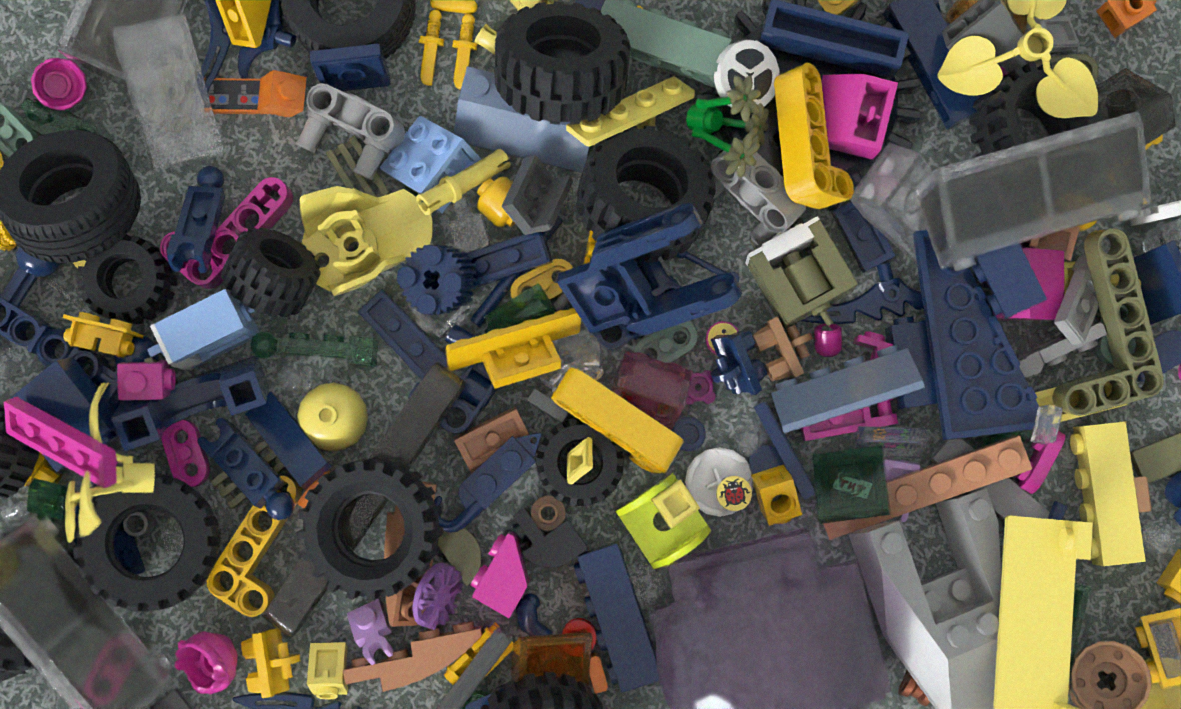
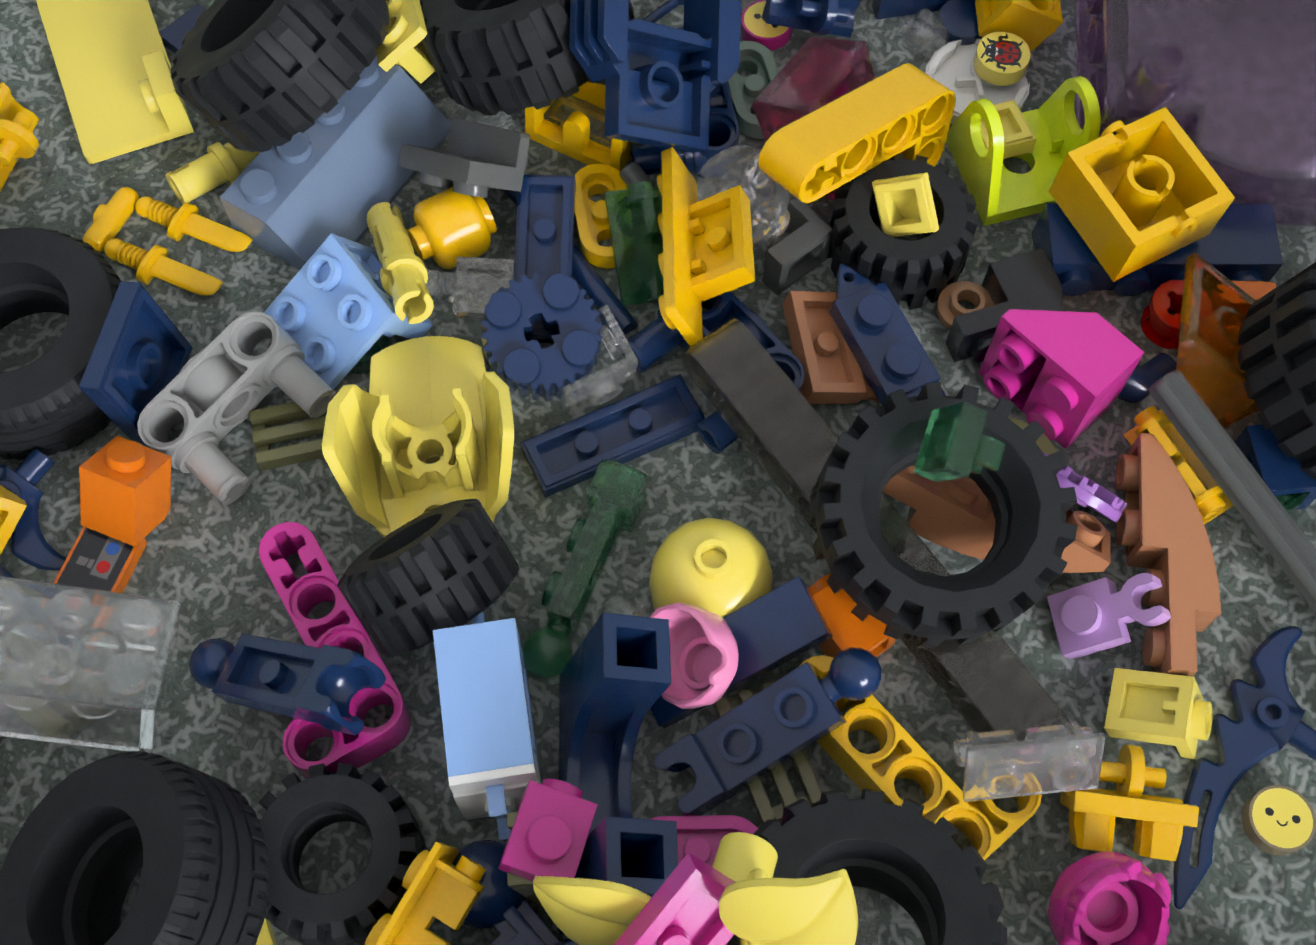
camera: 70 degrees left, 20 degrees down
(257, 593) = (1046, 762): none -> clear hinge
(271, 421) = (700, 655): none -> bright pink hair
(385, 525) = (955, 444): none -> clear green tile
(620, 597) = (1139, 193): none -> yellow brick

